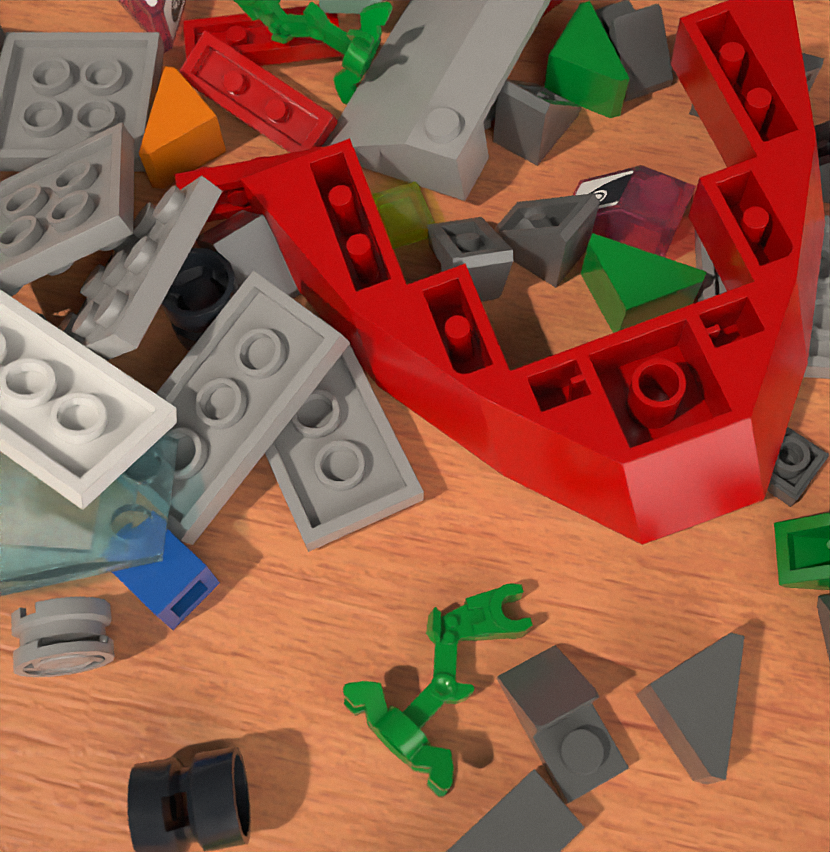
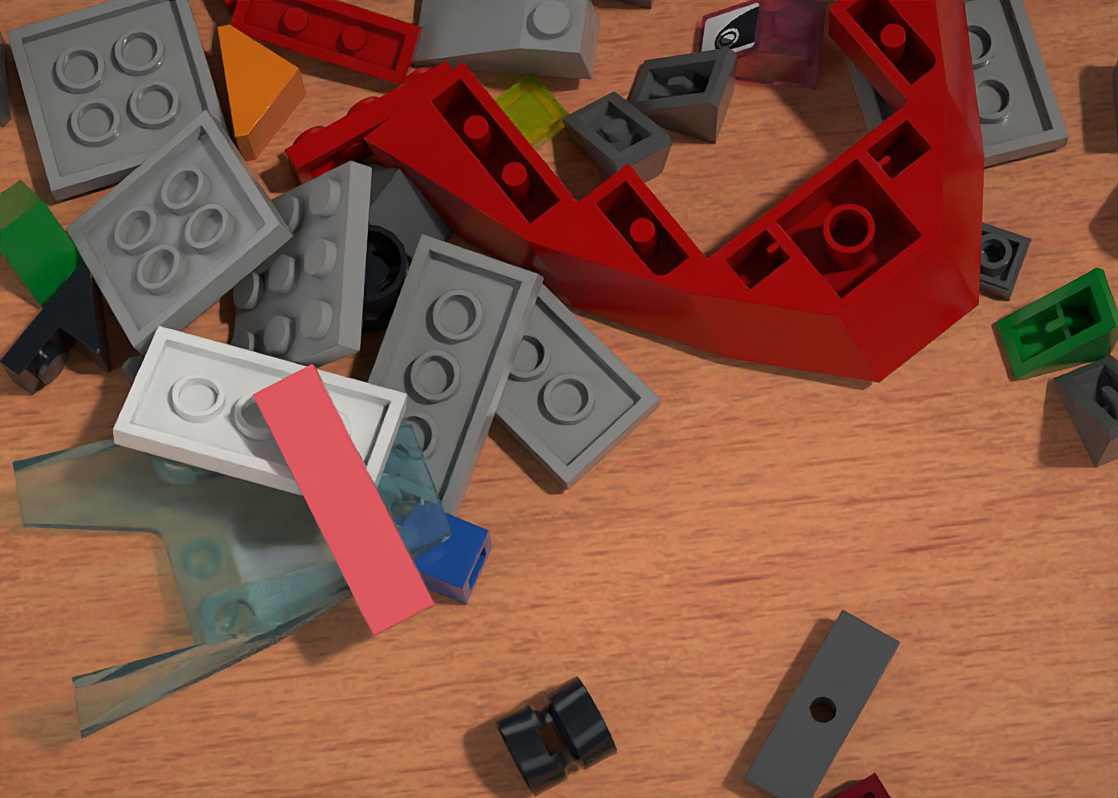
camera: 15 degrees left, 5 degrees up
(51, 491) = (344, 500): none -> coral tile
(62, 637) = (375, 656): light grey wheel -> none
(401, 731) = (716, 617): green piece -> none
(561, 722) = (853, 565): dark grey slope -> none
(636, 283) = (797, 123): green slope -> none
(697, 708) = (966, 511): dark grey slope -> none

